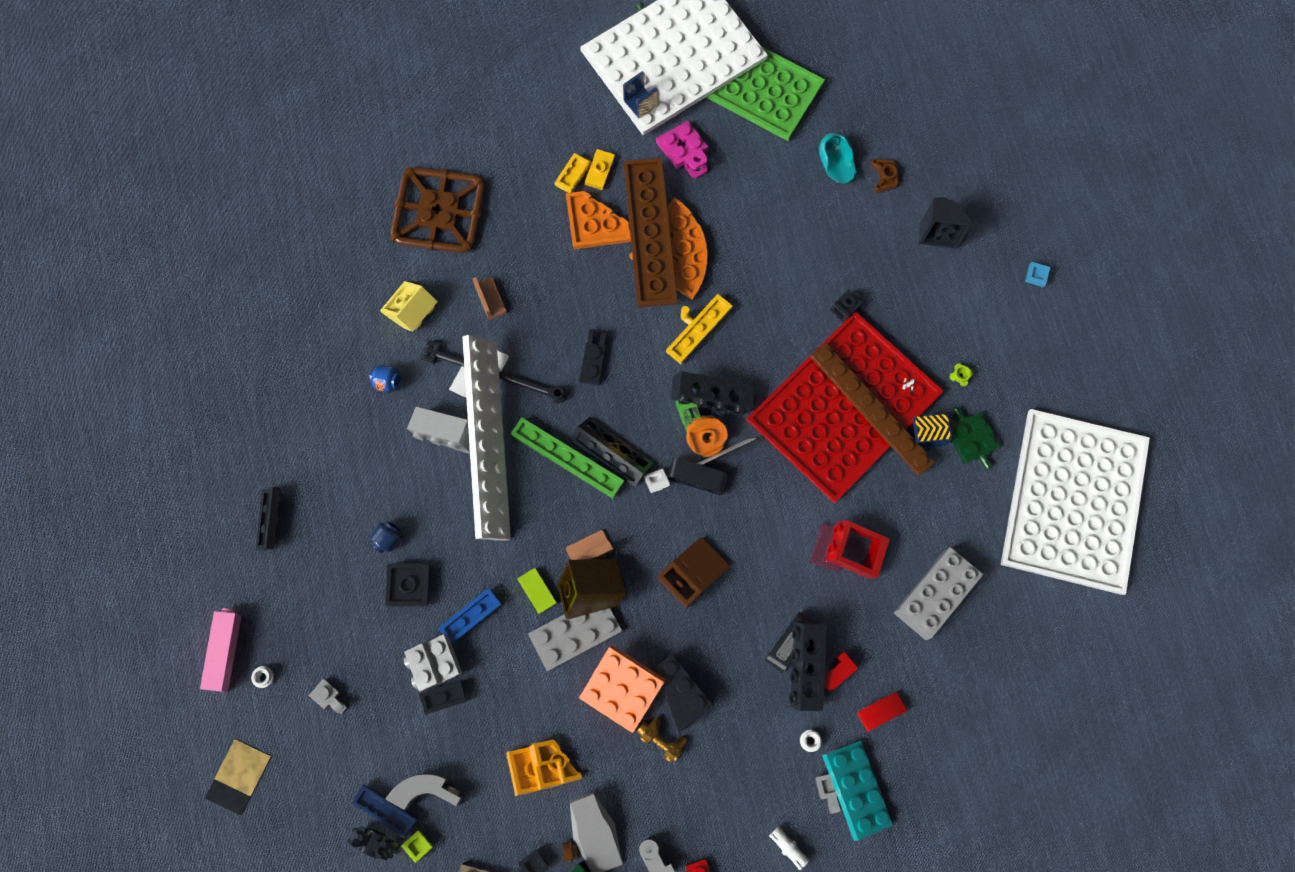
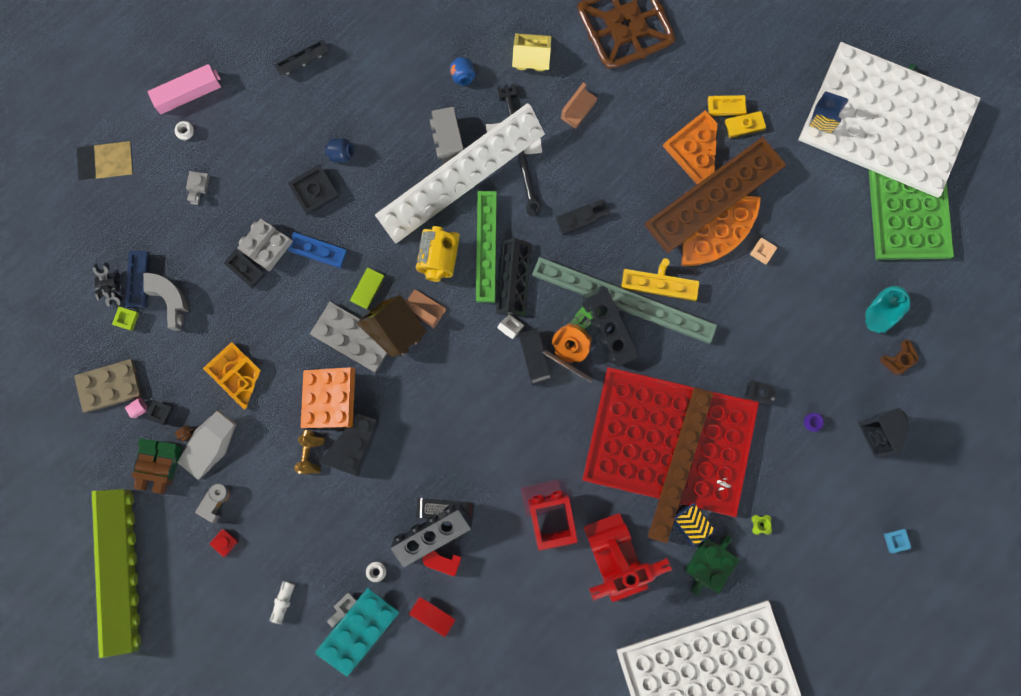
camera: 60 degrees right, 5 degrees up
(548, 504) = (437, 253): none -> yellow cylinder
(691, 155) = (806, 187): dark pink plate -> none
(692, 572) = (453, 399): reddish brown slope -> none
(697, 364) = (626, 301): none -> sand green plate
(723, 224) = (763, 251): none -> light nougat plate
(898, 277) = (813, 422): none -> dark purple plate
(926, 516) = (618, 561): none -> red plate
(938, 593) = (557, 609): light grey brick -> none

